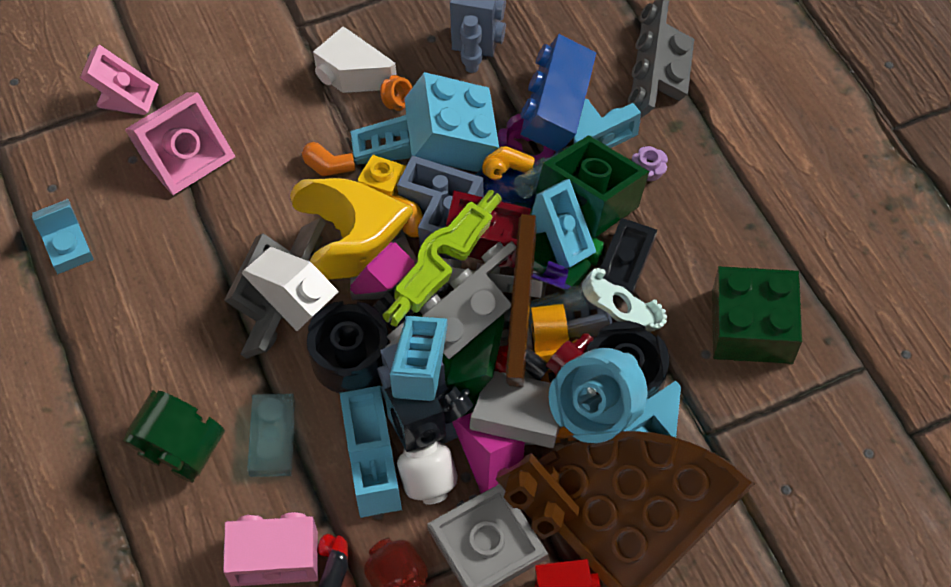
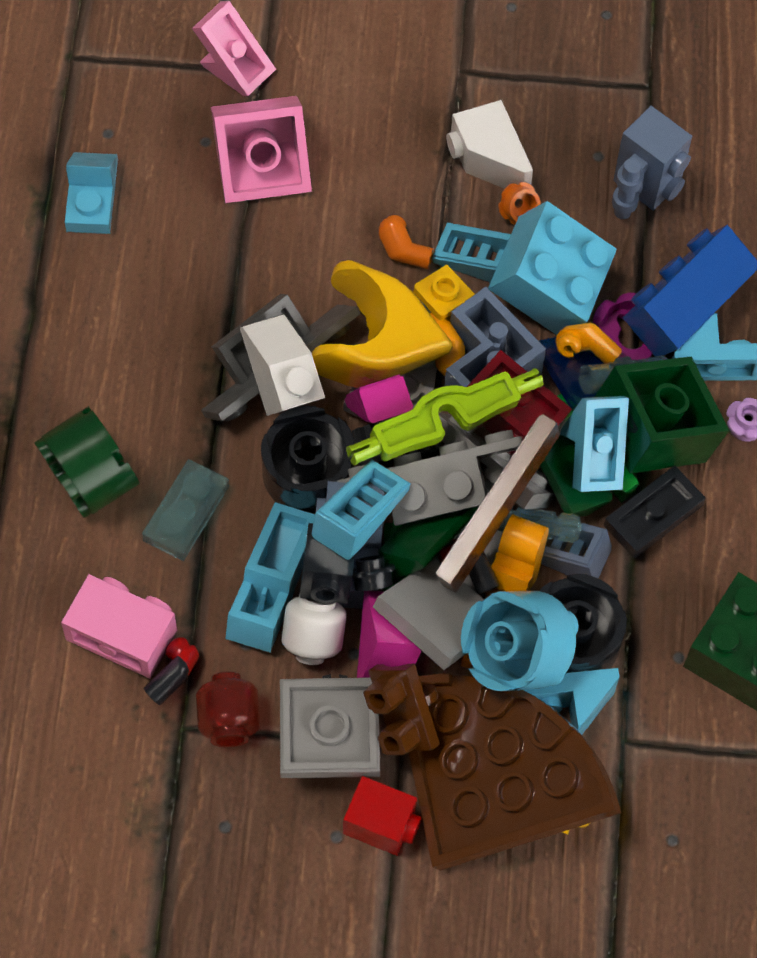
camera: 25 degrees right, 5 degrees up
(555, 275) = (555, 496): dark purple piece -> none
(568, 352) = (522, 580): dark red piece -> none
(601, 293) = (632, 580): light aqua piece -> none

